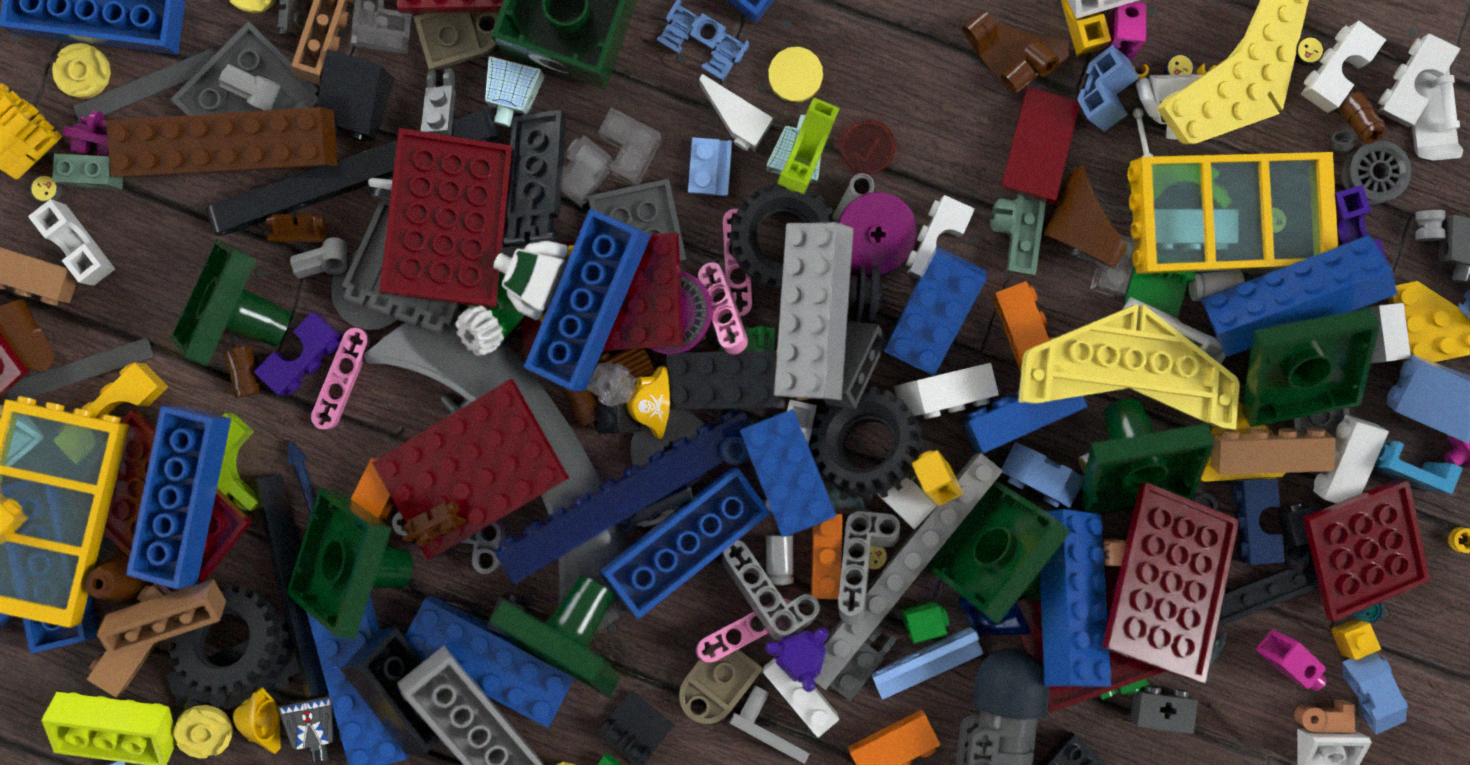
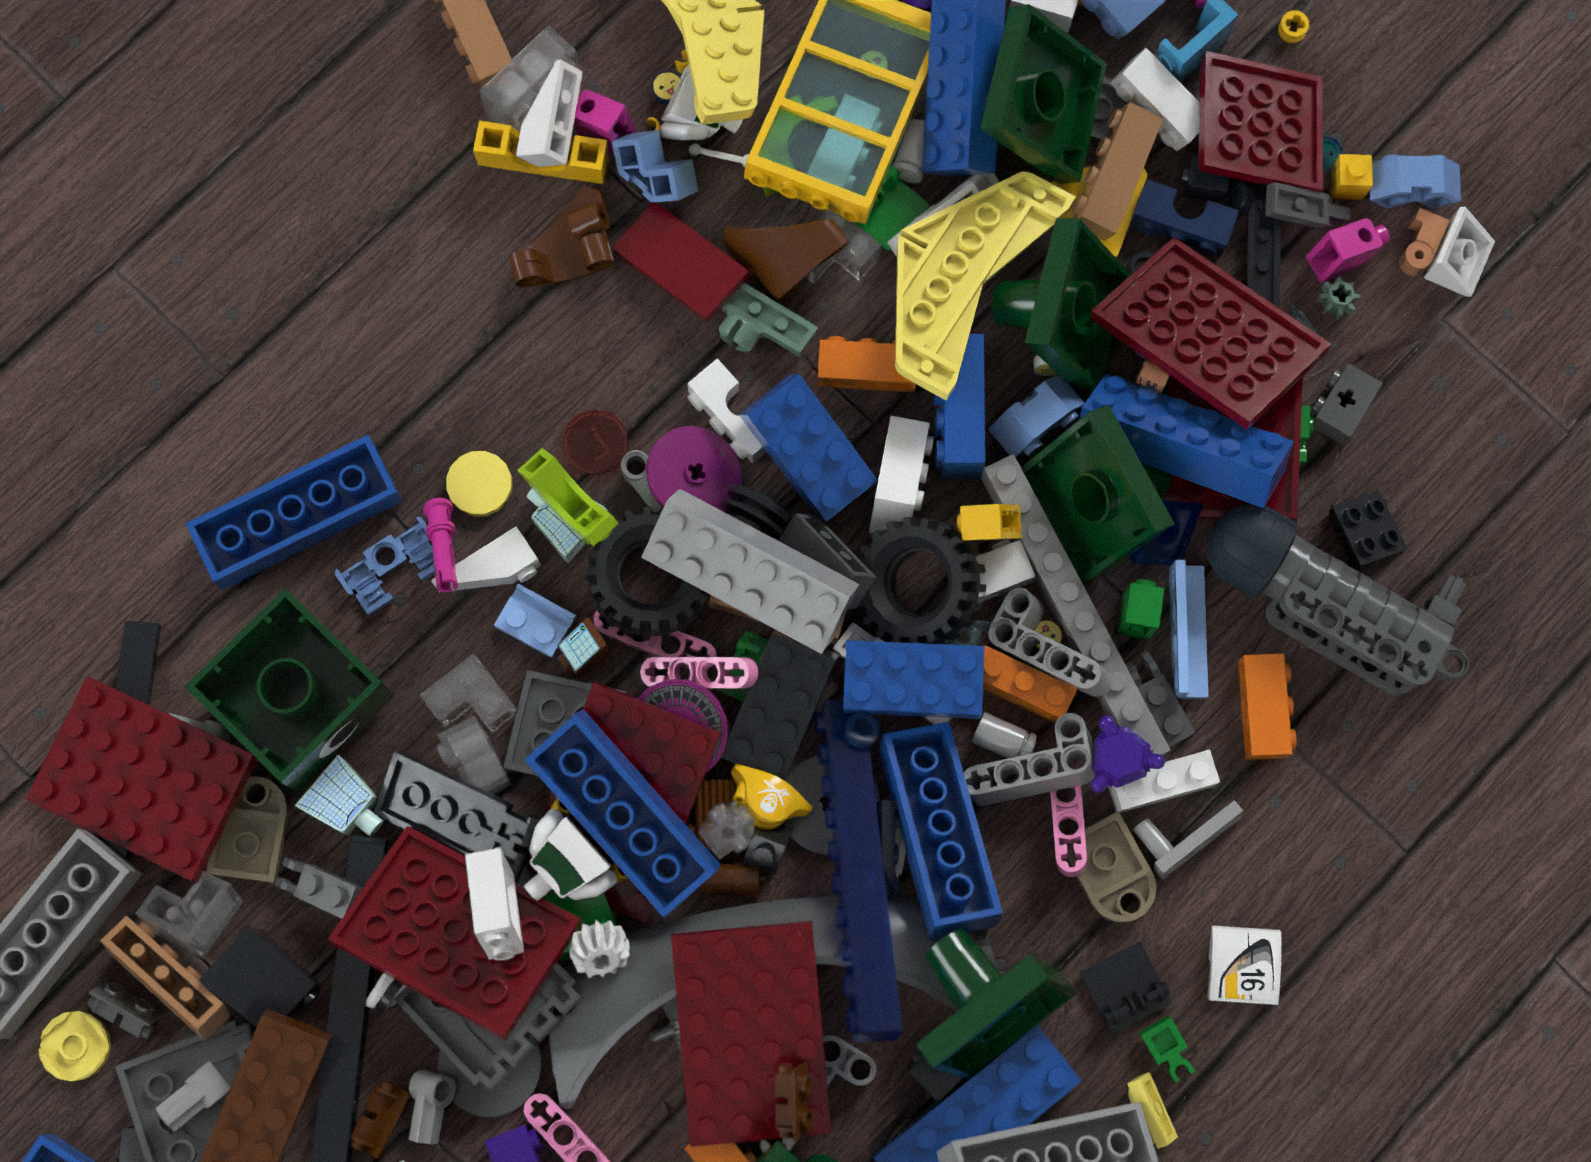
camera: 70 degrees left, 10 degrees down
(472, 238) = (494, 904): none -> white window
(702, 212) = (583, 649): none -> slope
(742, 64) = (441, 532): none -> dark pink pin
(1256, 672) = (1331, 303): none -> sand green gear
(1312, 611) = (1303, 206): none -> dark grey hinge

